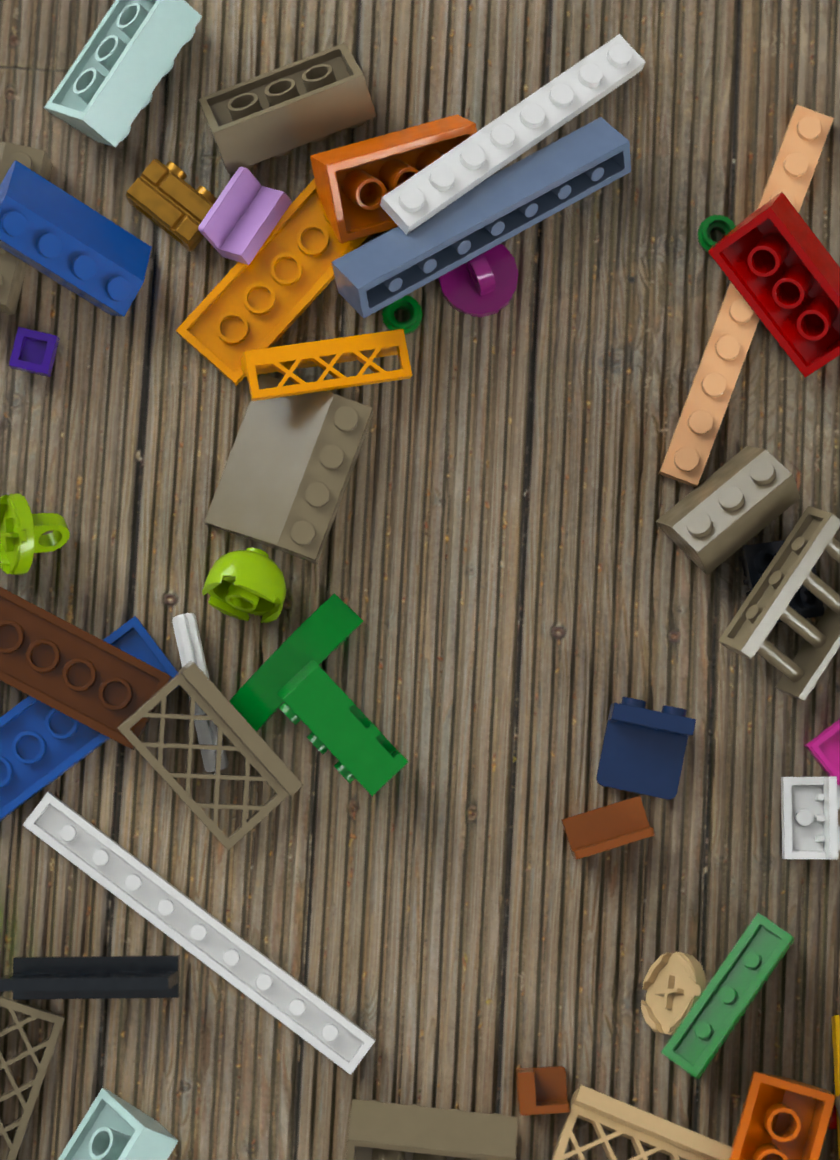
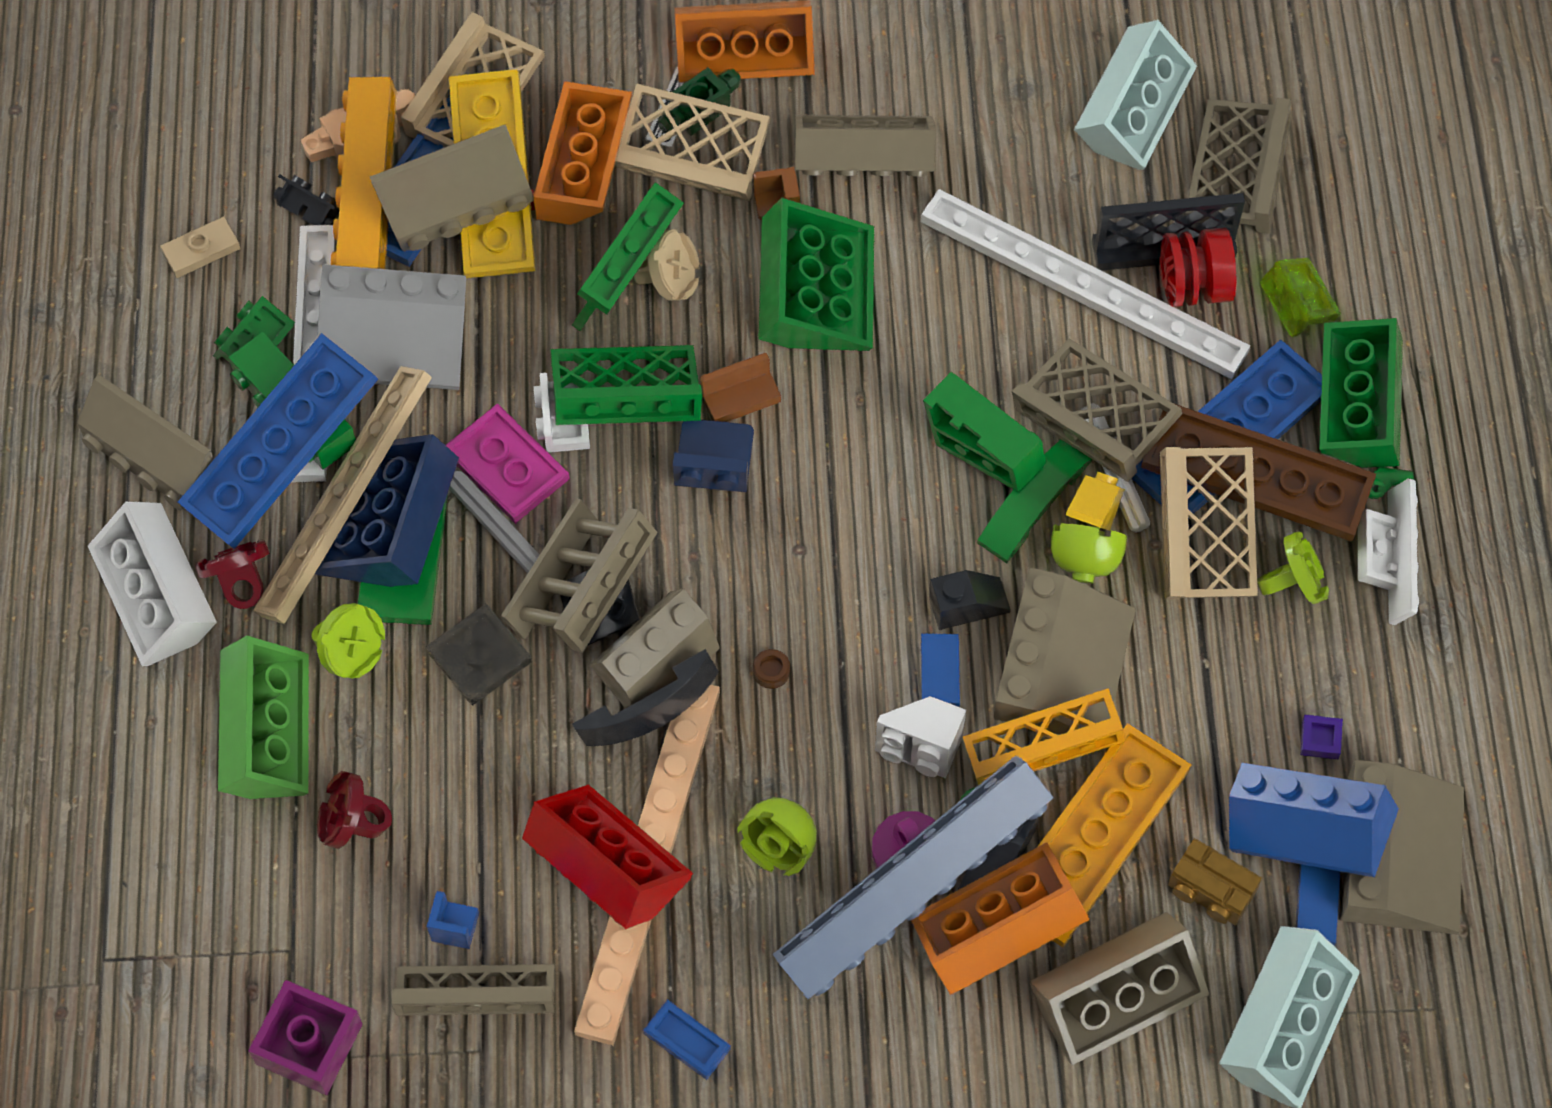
camera: 175 degrees right, 20 degrees down
(61, 924) = (1203, 267): none -> red wheel
(76, 166) = (1318, 900): none -> blue tile
(144, 607) = (1176, 529): none -> tan fence
(230, 631) = (1096, 501): none -> yellow slope
(243, 217) = (1143, 872): lavender panel -> none
(382, 545) = (966, 598): none -> black slope
(423, 470) = (940, 667): none -> blue tile
(453, 381) = (922, 735): none -> white slope
(506, 967) = (815, 279): none -> green slope
(511, 134) = (891, 964): white plate -> none
(602, 491) = (771, 668): none -> reddish brown tile
(610, 296) = (778, 835): none -> lime cylinder
(697, 461) = (652, 711): none -> black slope
(714, 222) = (686, 899): green plate -> none
(721, 104) = (687, 1039): none -> blue tile
(745, 814) = (626, 401): none -> green fence

